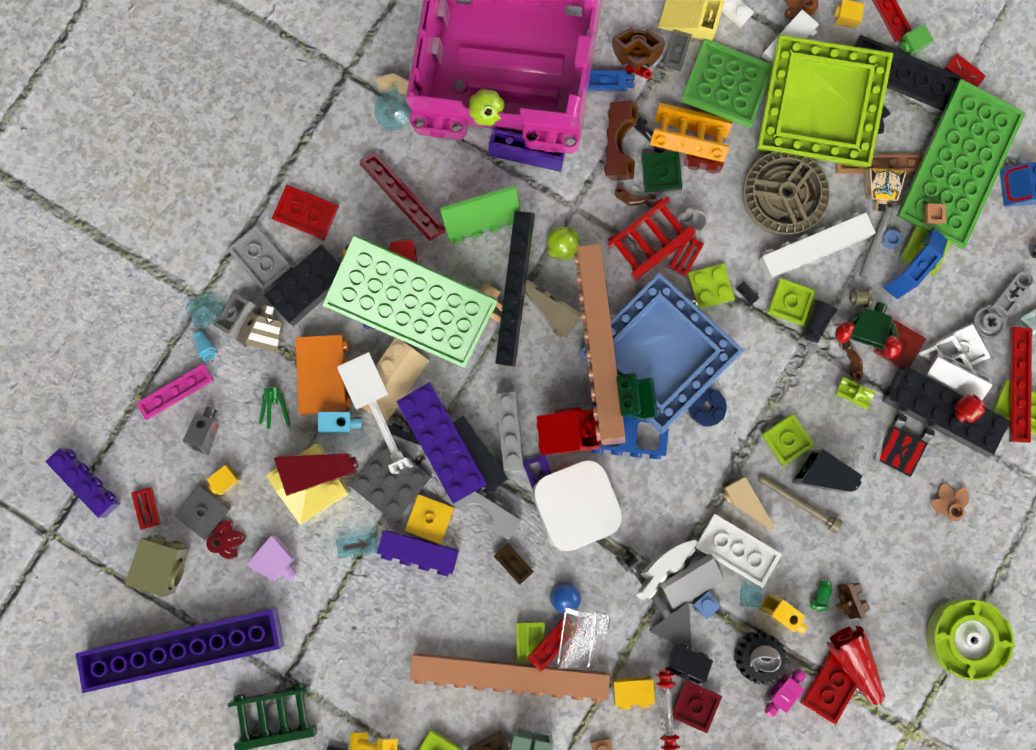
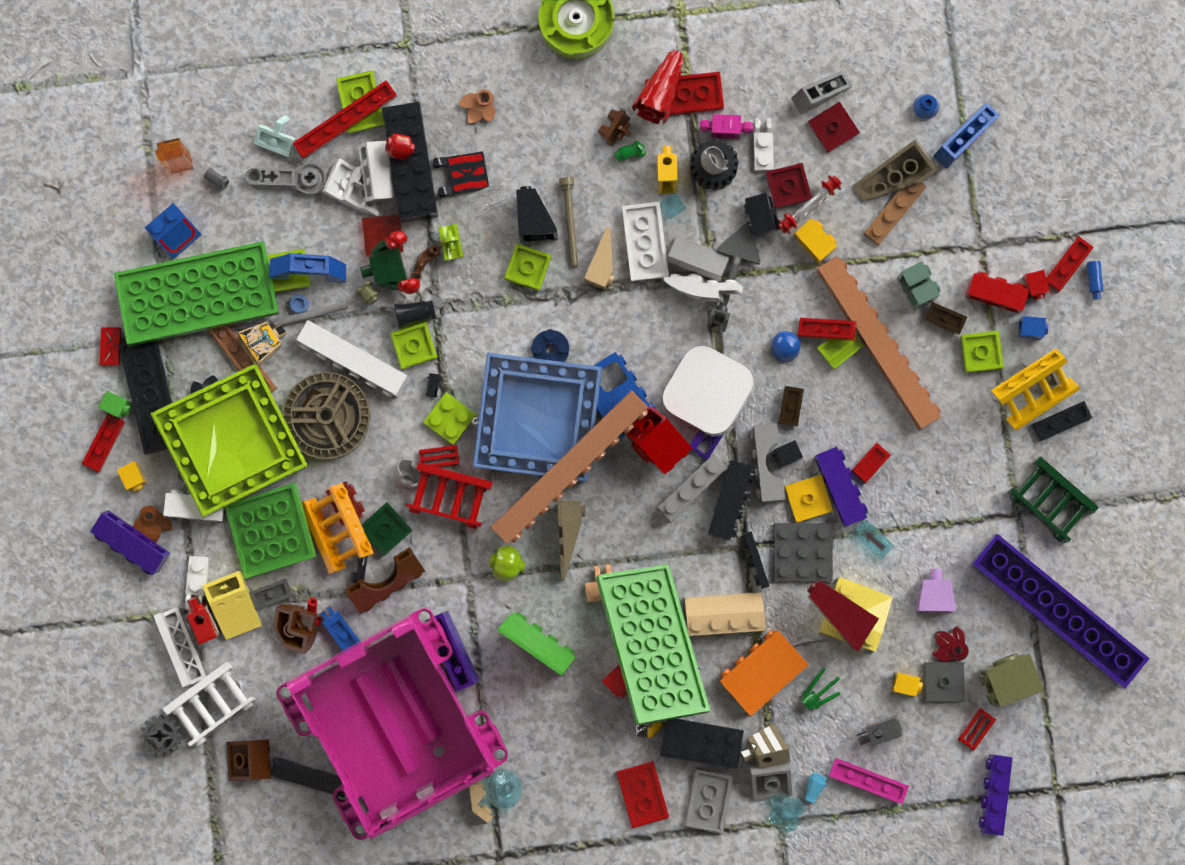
camera: 120 degrees left, 0 degrees up
(328, 425) = (796, 636): medium azure torso -> none
(365, 389) = (747, 625): white piece -> none
(402, 196) = (569, 722): dark red plate -> none
(418, 592) = (870, 463): none -> red tile
(441, 442) = (742, 533): dark purple plate -> none
(477, 529) = (787, 454): none -> black brick
(484, 101) = (448, 708): lime plant -> none
(515, 288) = (575, 571): black plate -> none
(582, 638) = (806, 309): clear slope -> none
(630, 200) = (427, 536): reddish brown arm -> none
(636, 397) = (591, 406): dark green panel -> none
(706, 605) = (705, 234): medium blue plate -> none
(744, 710) = (763, 147): none -> white hinge
(934, 213) = (257, 284): nougat plate -> none

